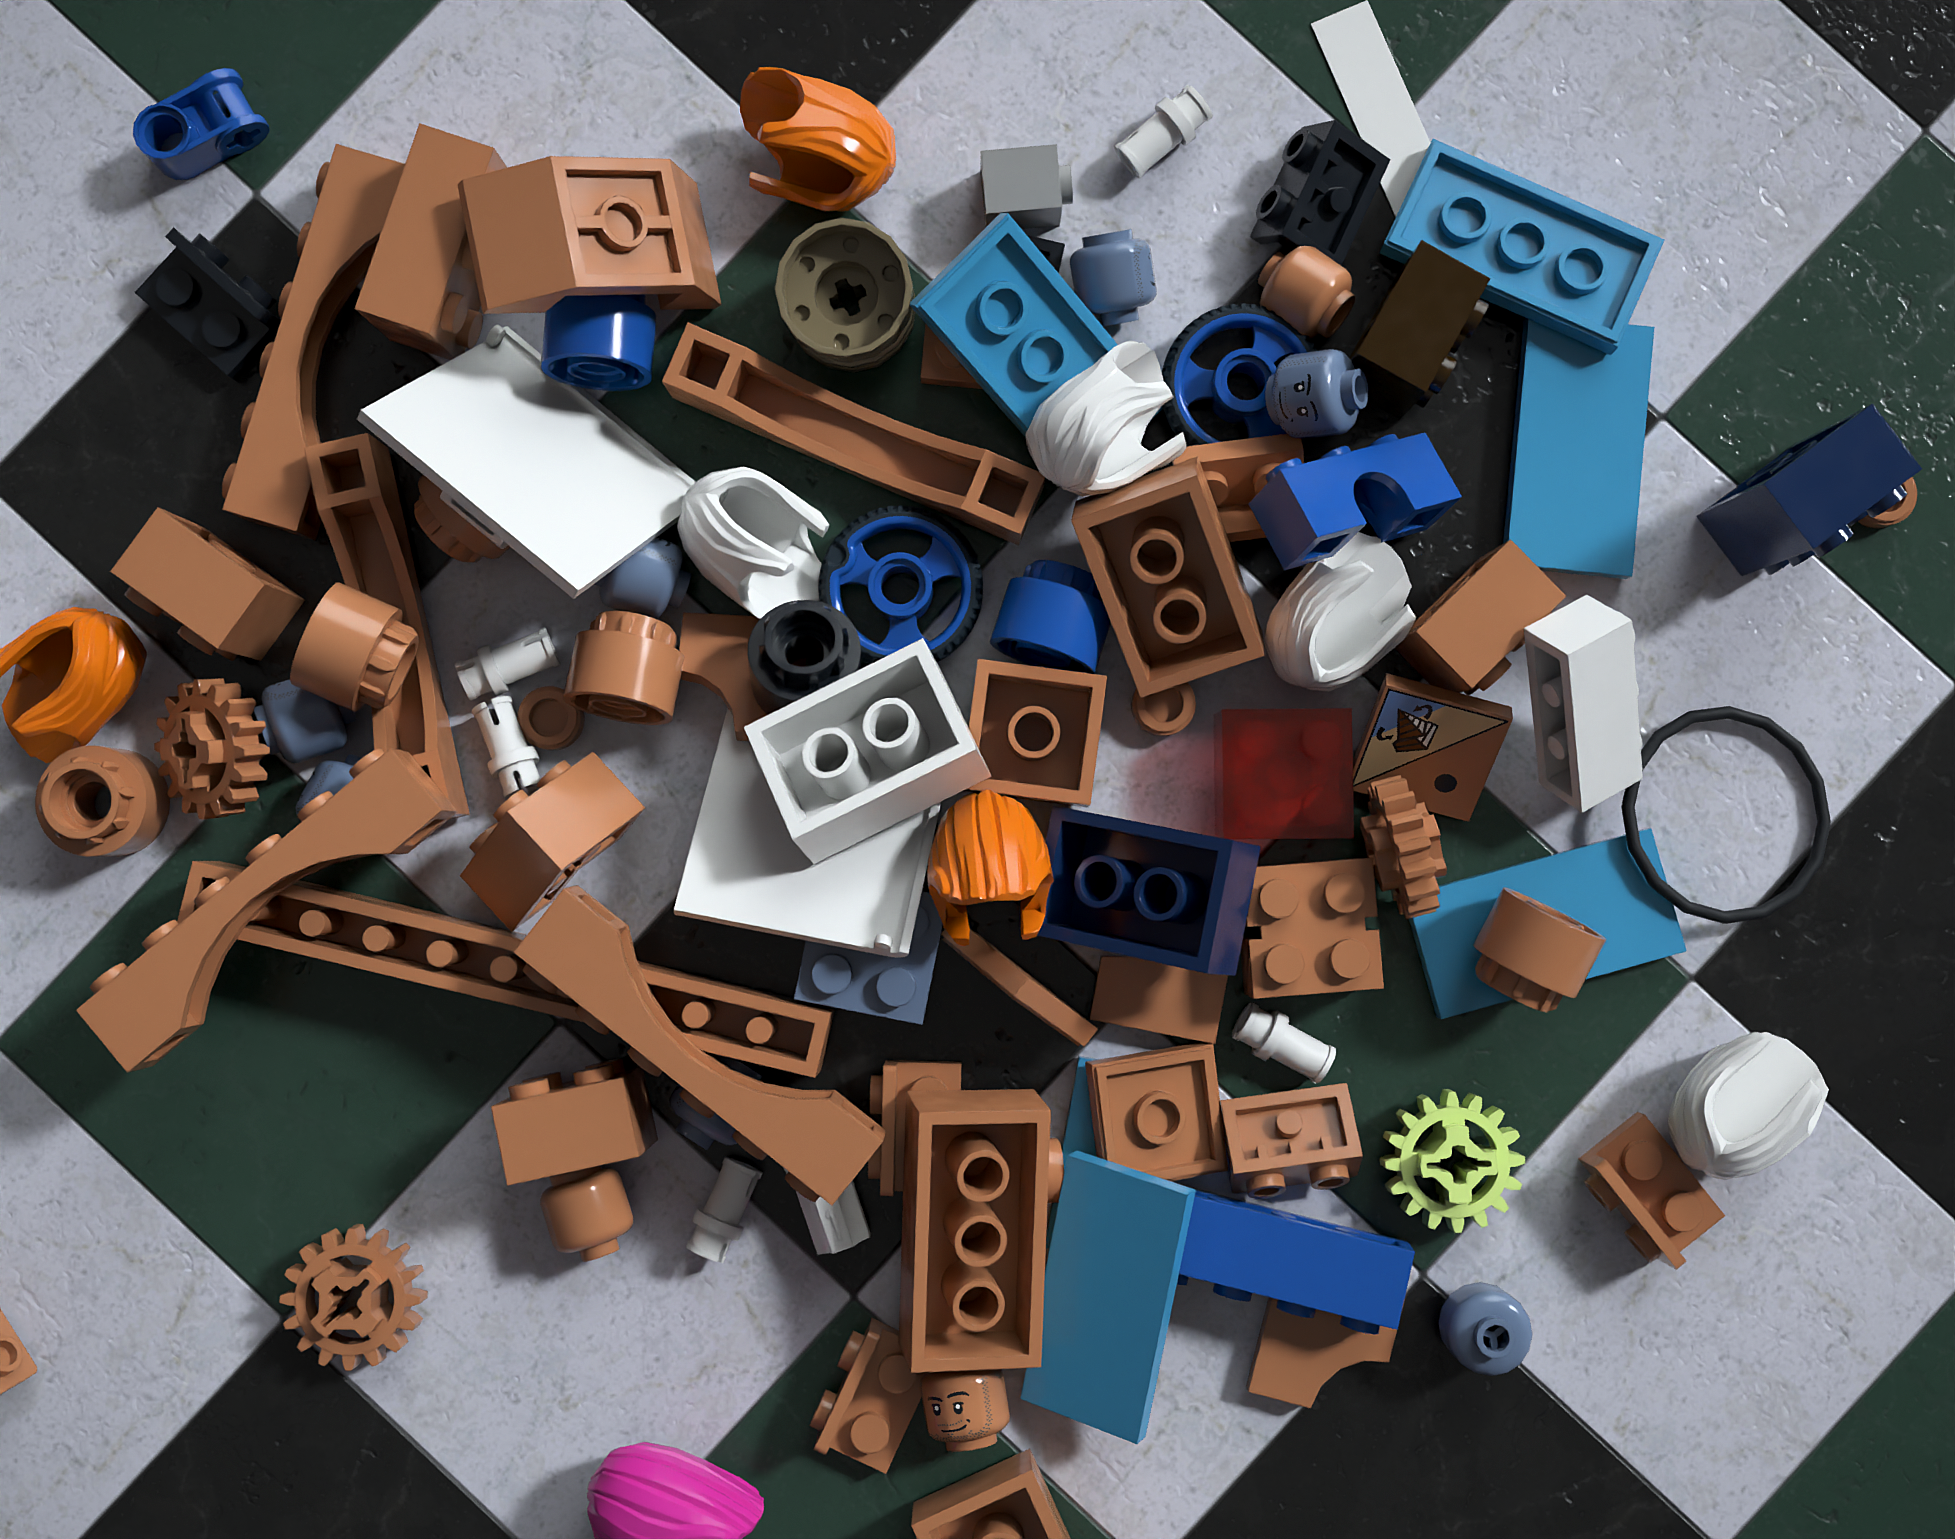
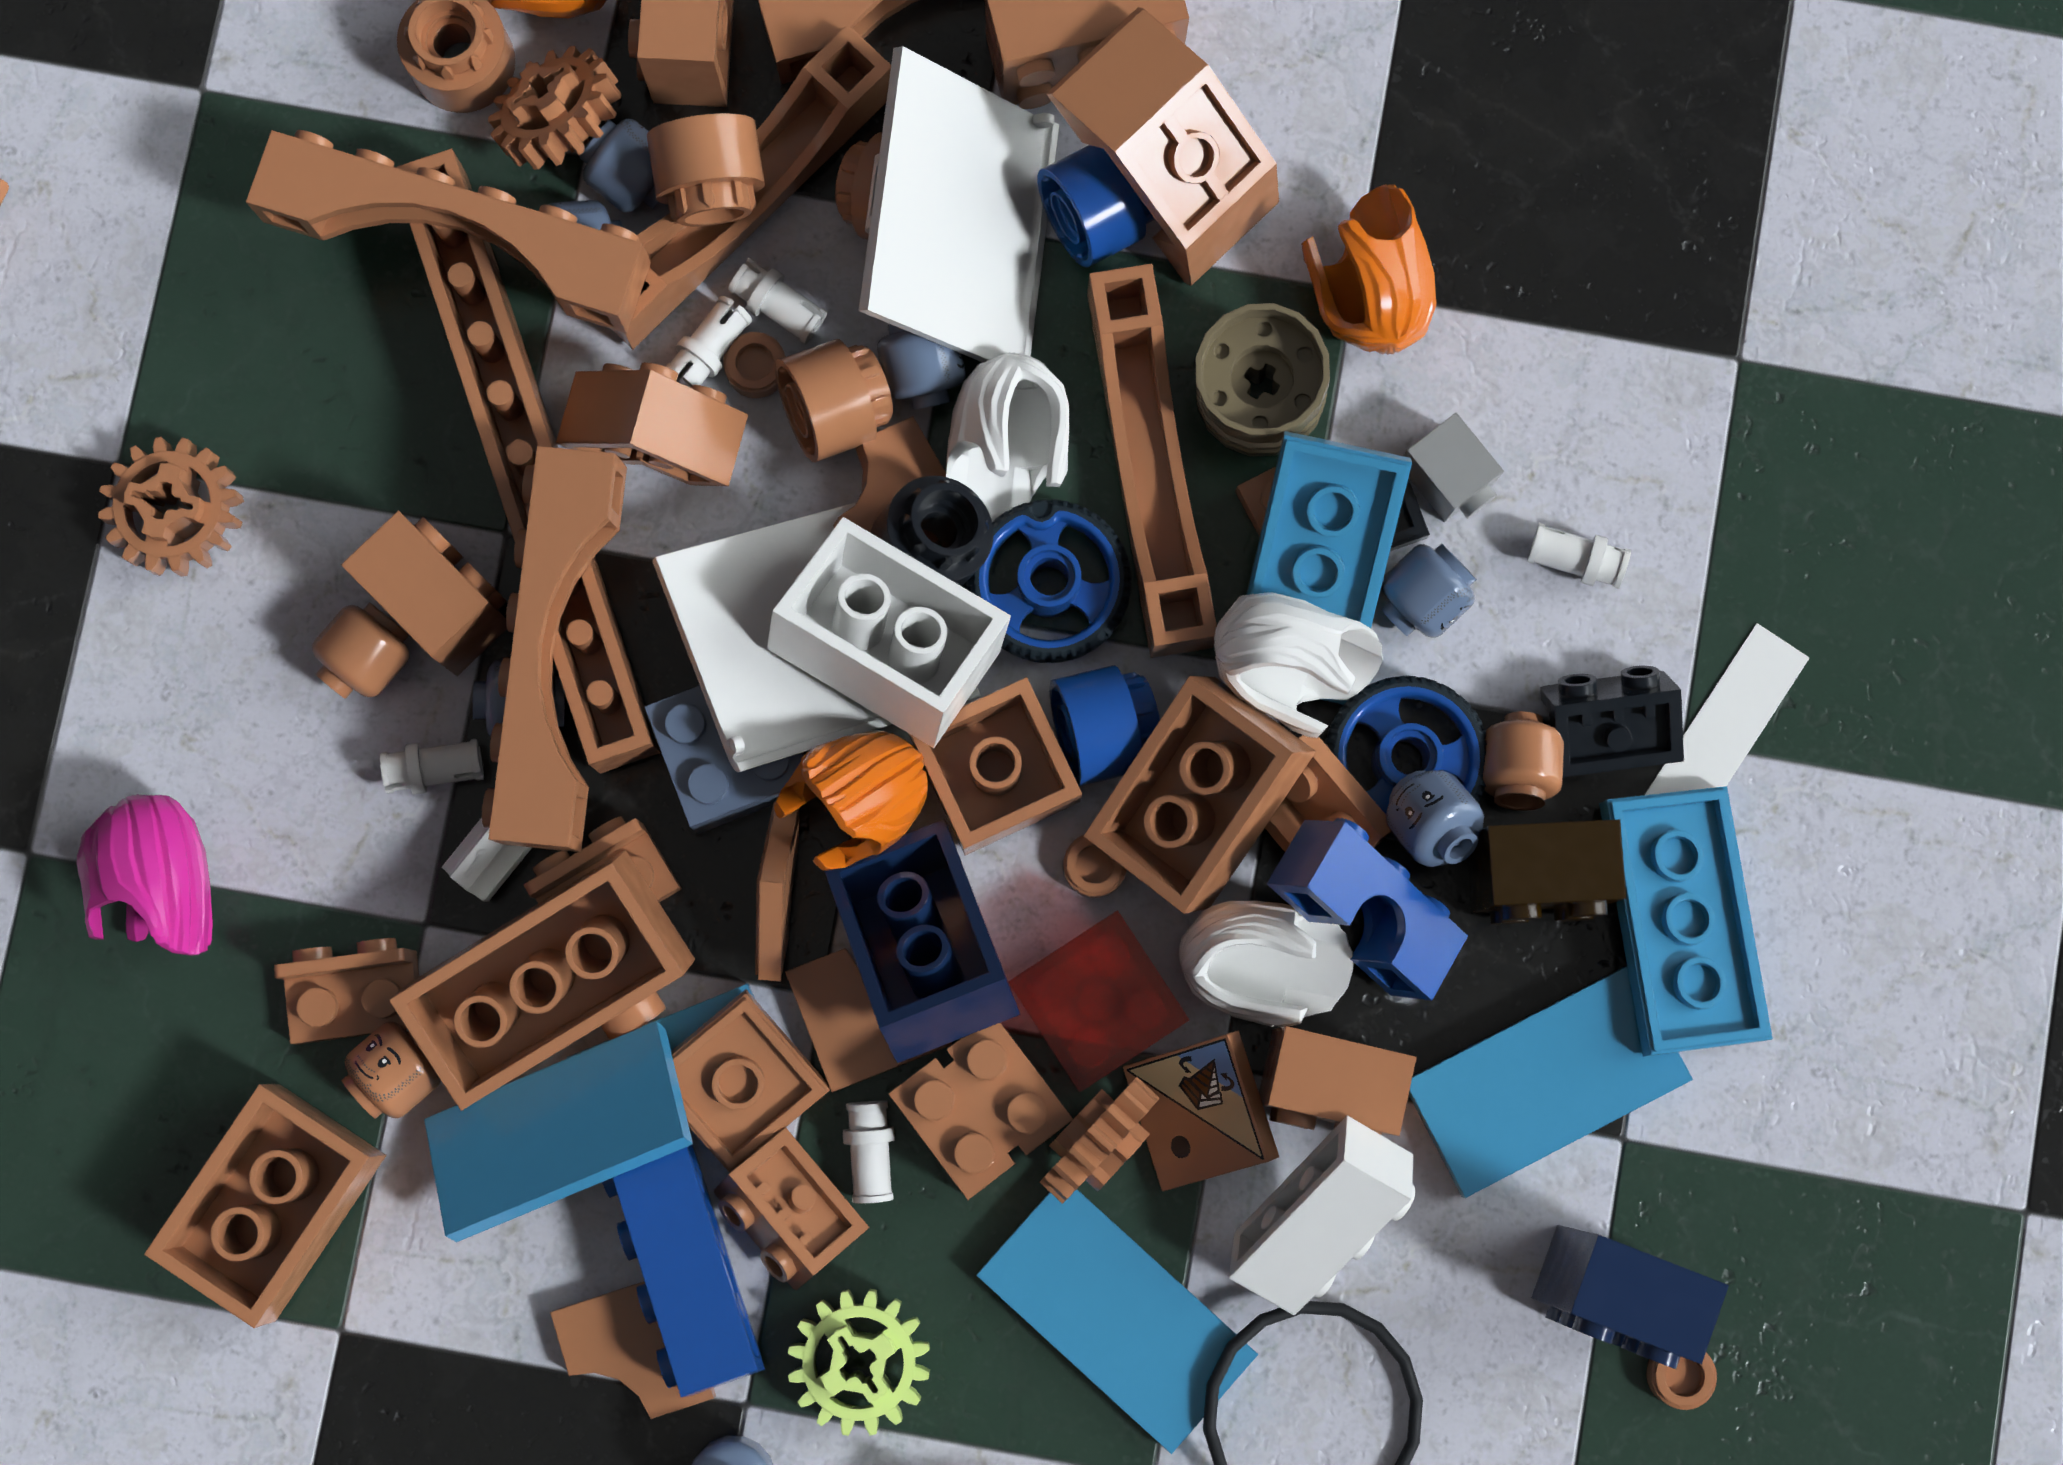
camera: 55 degrees right, 5 degrees down
(1534, 951) = (1083, 1312): nougat piece -> none

